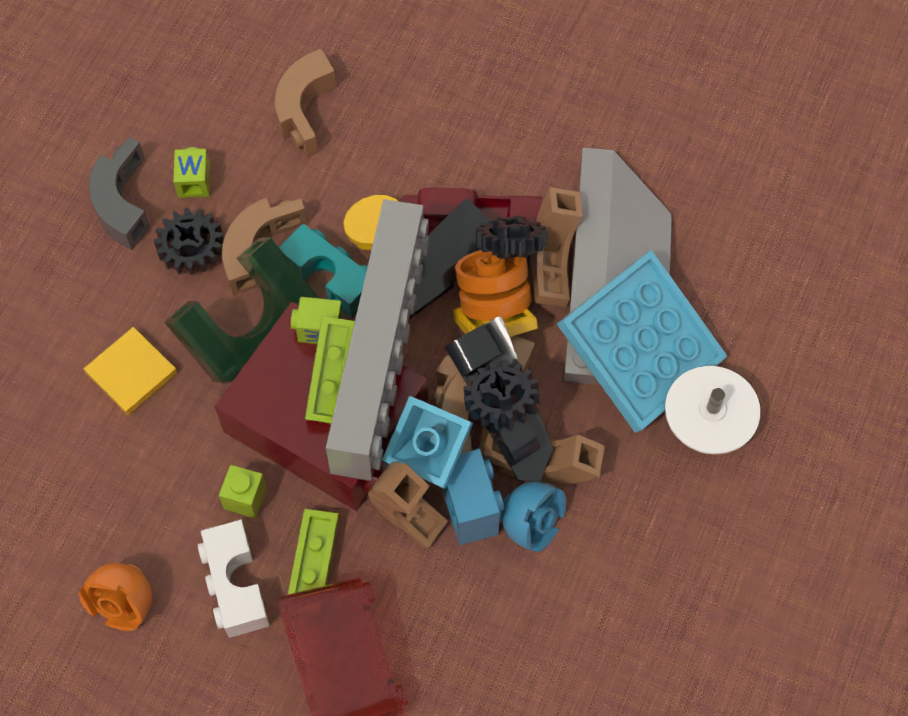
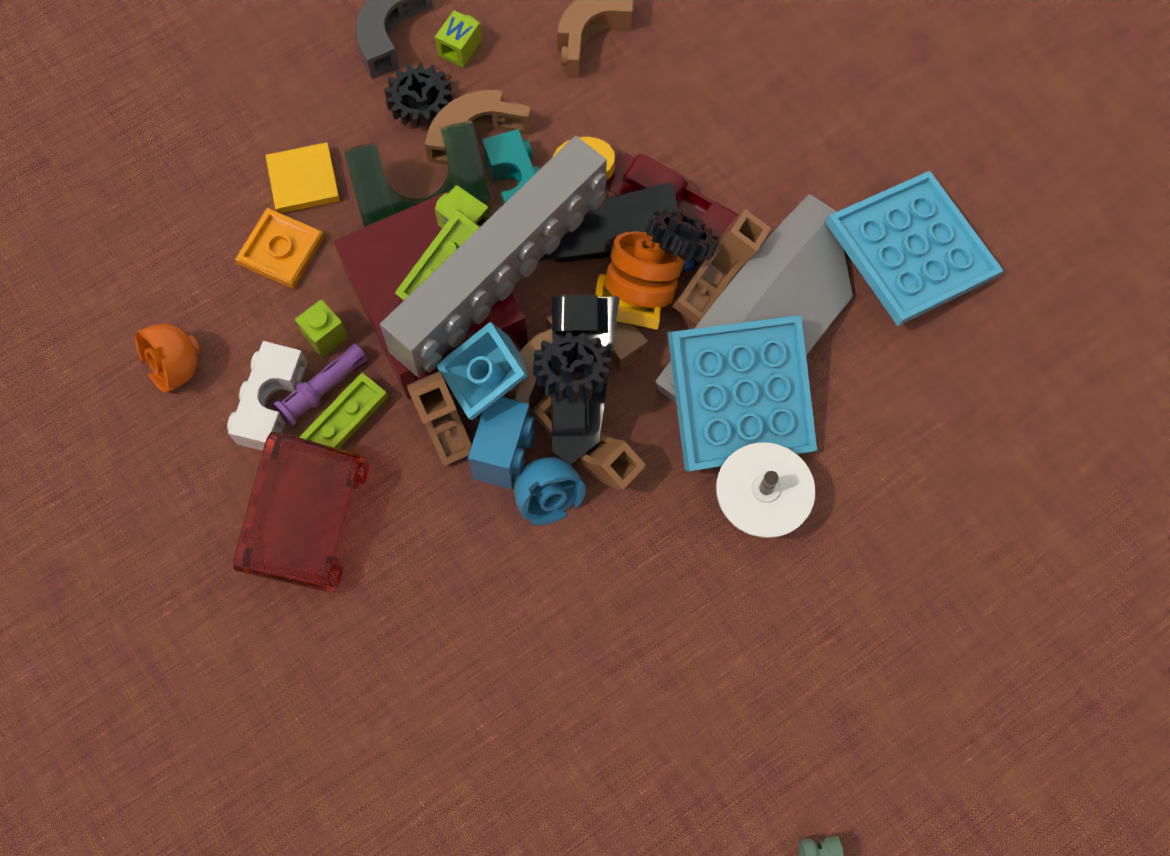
camera: 30 degrees right, 5 degrees up
(151, 444) = (280, 248): none -> light orange tile
(268, 554) = (309, 393): none -> medium lavender pin
(695, 146) = (913, 247): none -> medium azure plate

